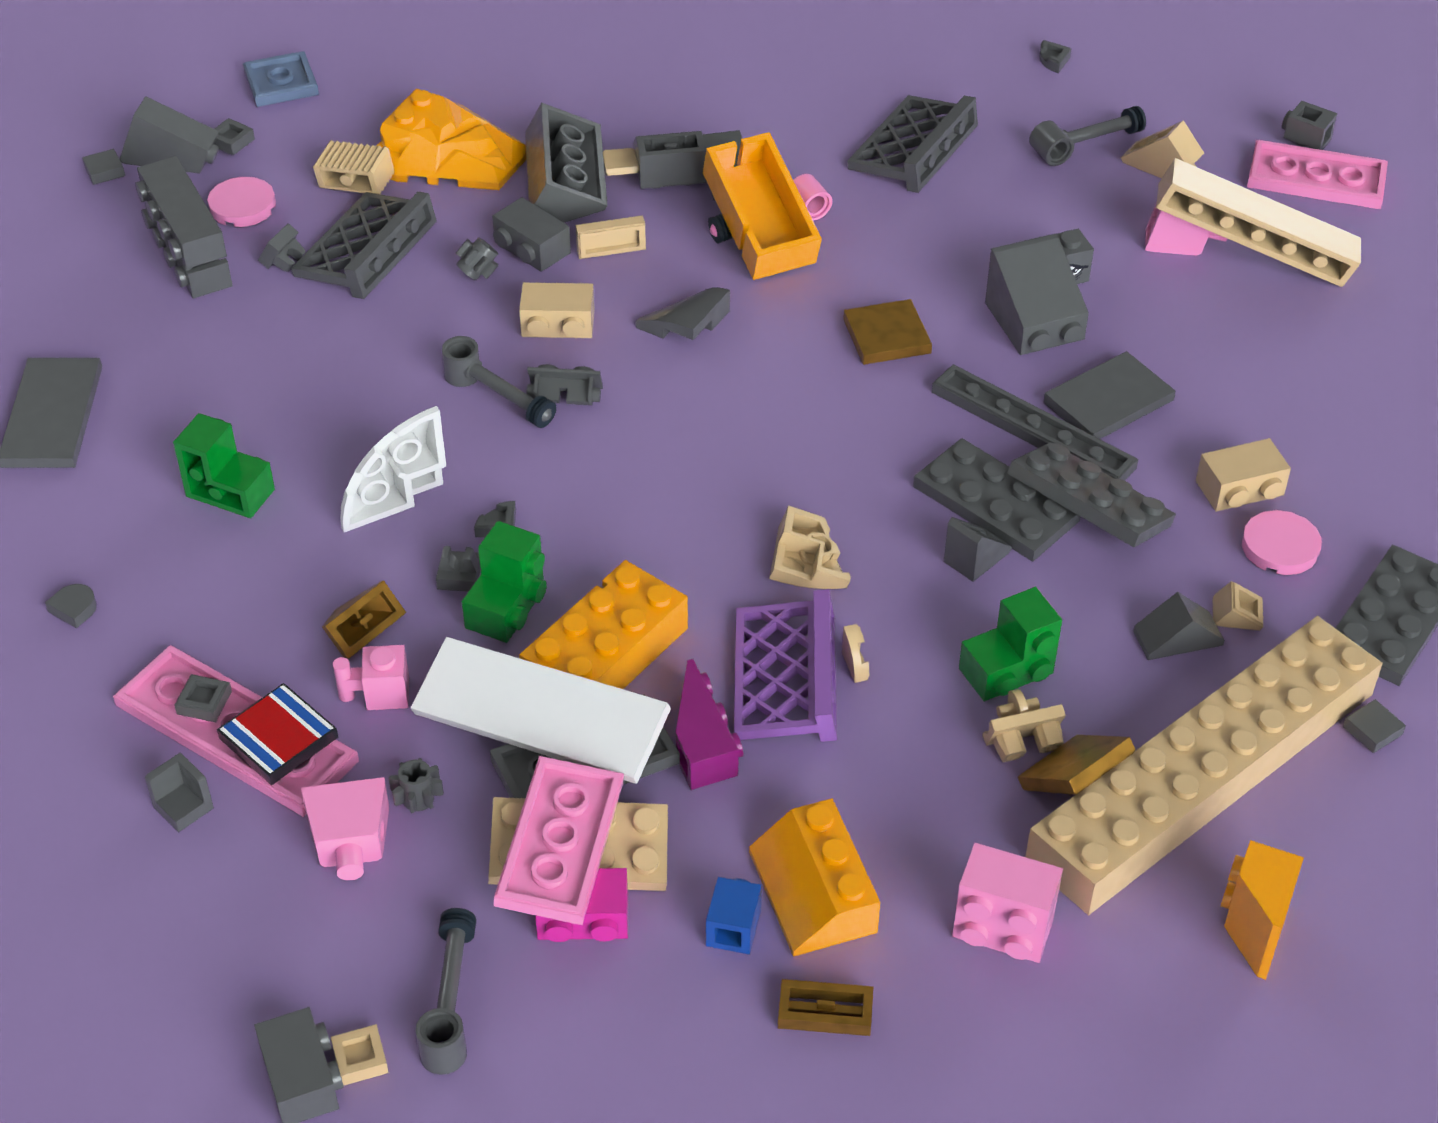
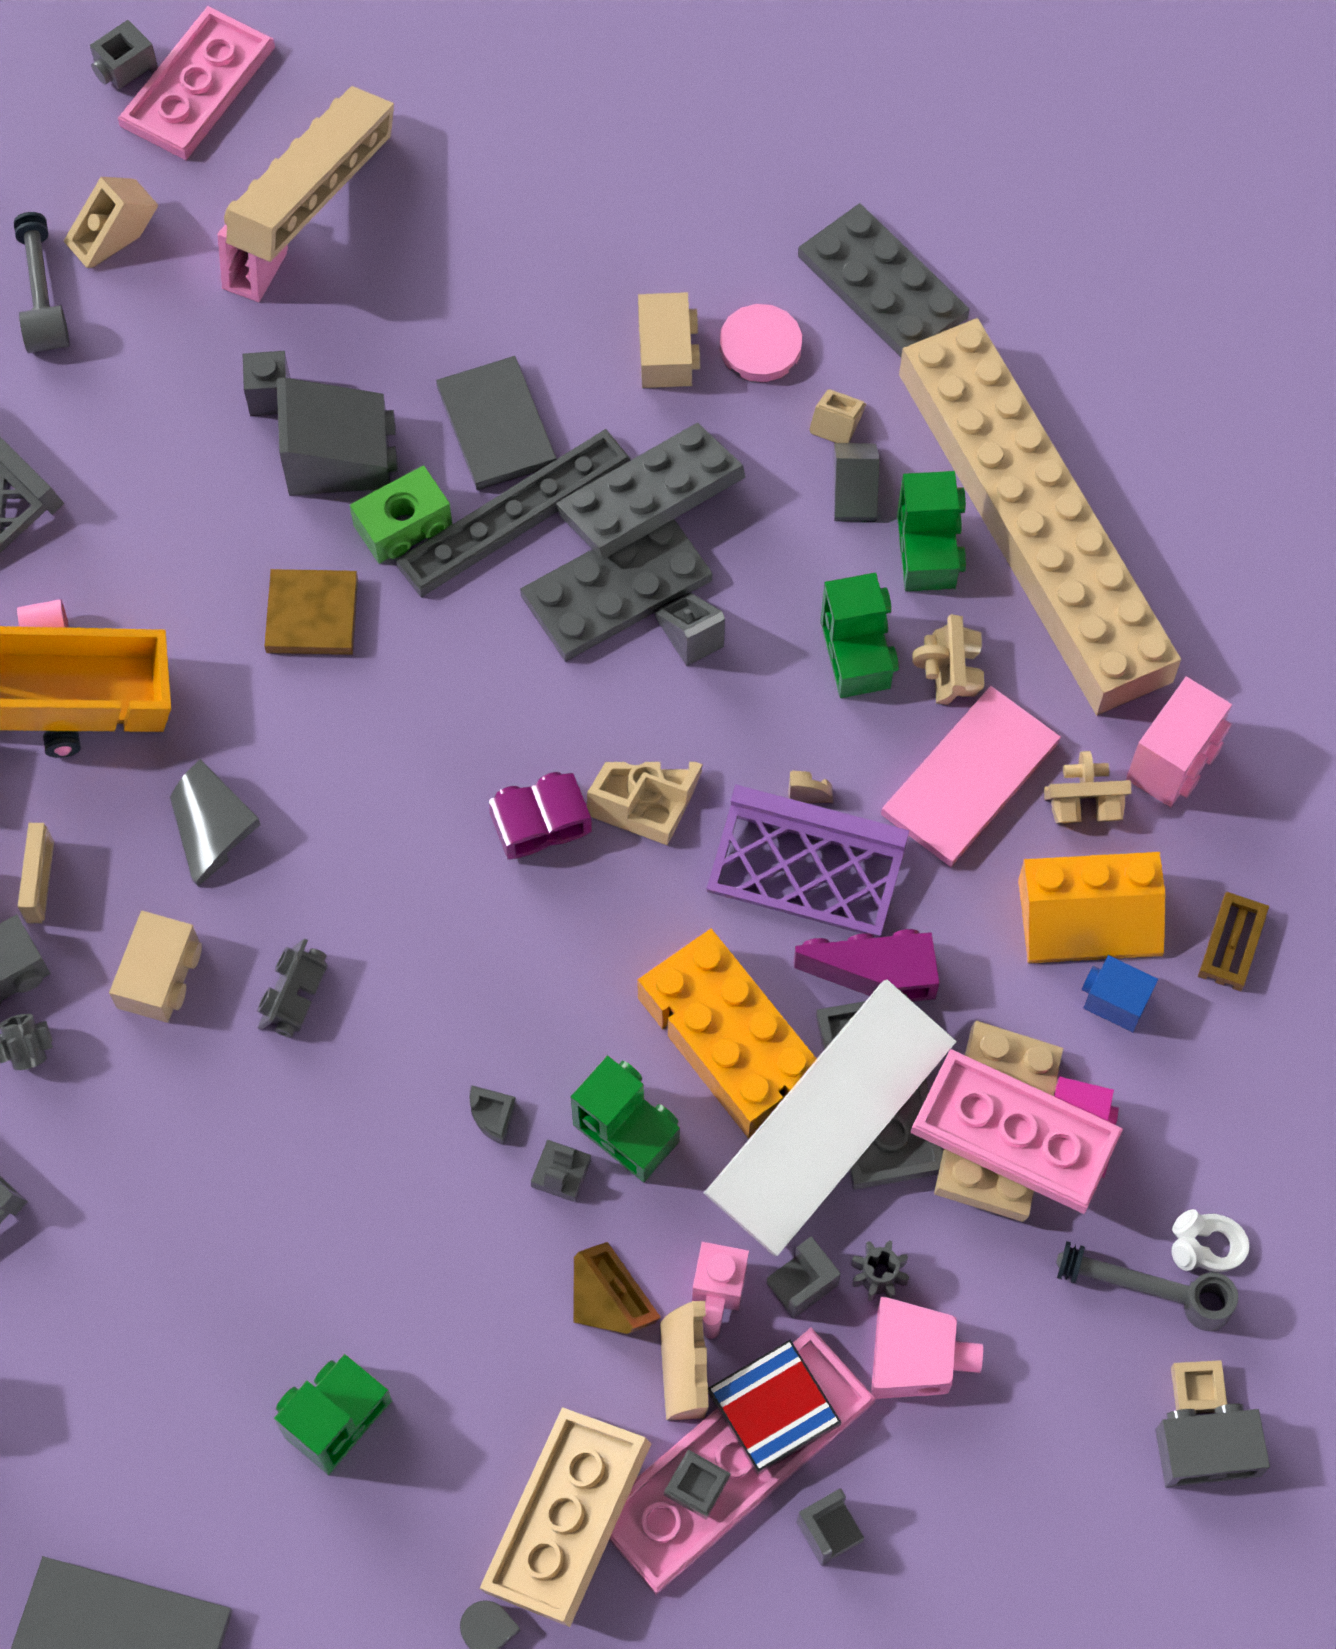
camera: 75 degrees left, 20 degrees up
(164, 622) = (565, 1516): none -> tan plate
(305, 666) = (684, 1362): none -> tan slope
(395, 470) = (404, 1203): white brick -> none
(399, 740) = (804, 1278): none -> dark grey panel
(464, 368) = (327, 1026): dark grey piece -> none
(487, 1027) = (1190, 1254): none -> white piece
(759, 488) = (540, 815): none -> magenta brick
(918, 770) = (970, 776): none -> bright pink tile
(948, 845) = (1108, 794): none -> tan hips
(993, 354) = (410, 495): none -> bright green brick
(1076, 764) = (1020, 628): pearl gold tile -> none
(1148, 681) = (928, 528): none -> green brick
(1259, 901) = (1231, 530): light orange slope -> none
(1374, 726) = (1021, 356): dark grey tile -> none

